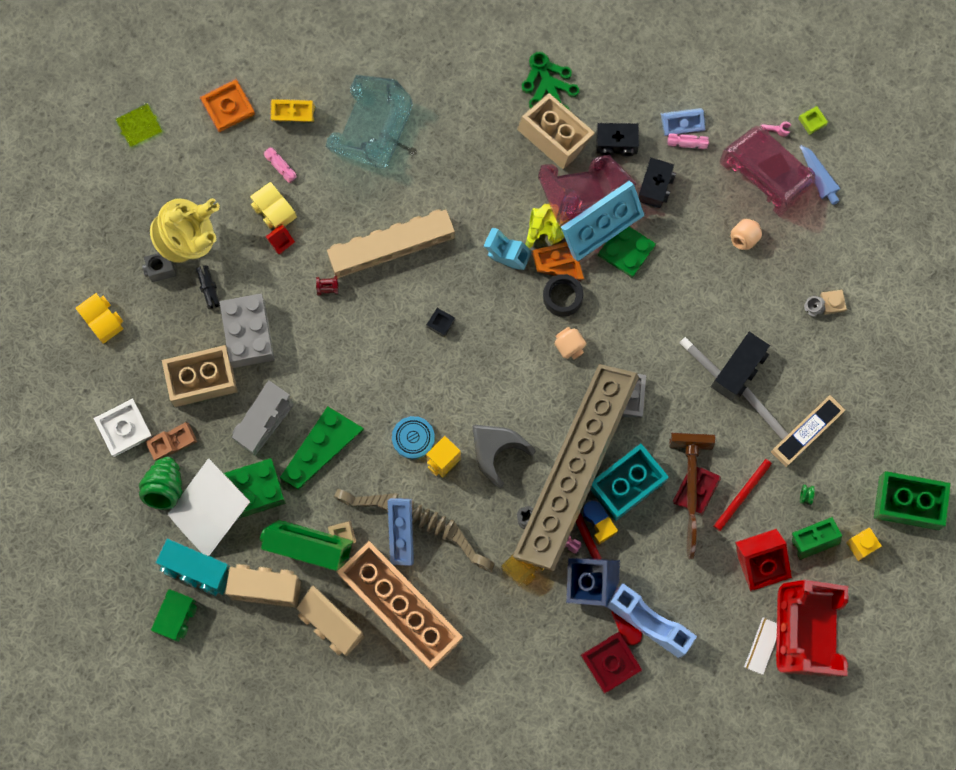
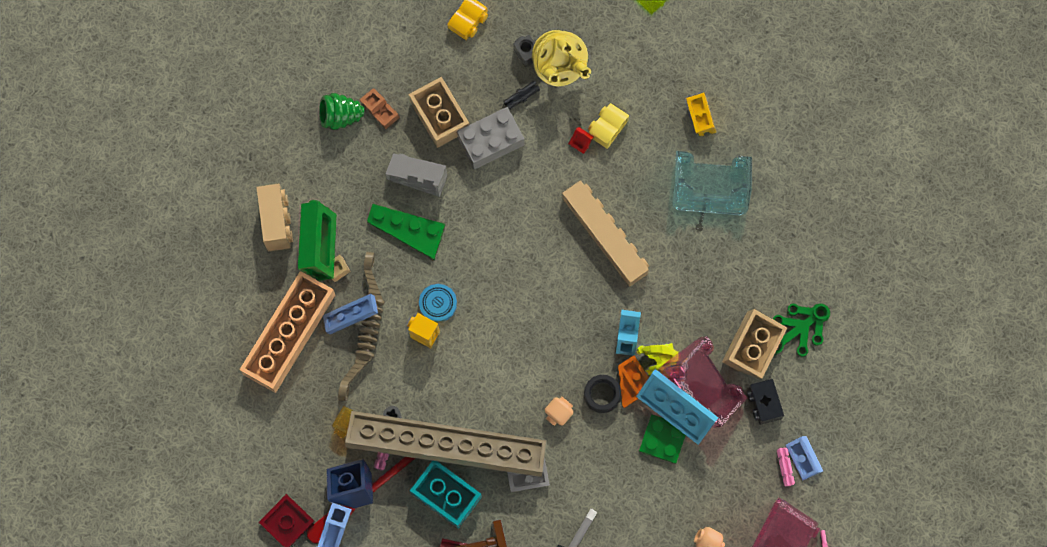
camera: 75 degrees right, 0 degrees up
(123, 427) = (380, 66): white plate -> none
(174, 615) = (234, 156): green brick -> none
(193, 567) = (275, 156): teal brick -> none
(208, 508) = (327, 153): white sticker -> none
(227, 105) = (691, 60): orange tile -> none
(259, 485) = (352, 180): green brick -> none
(280, 165) = (650, 120): bright pink axle -> none
(322, 285) = (549, 186): dark red bush -> none
(329, 622) = (260, 279): tan slope -> none
(440, 322) = (546, 296): black plate -> none
(490, 442) = (447, 366): dark grey animal -> none
(595, 513) = (406, 479): leg -> none
(661, 172) = (743, 442): black brick -> none

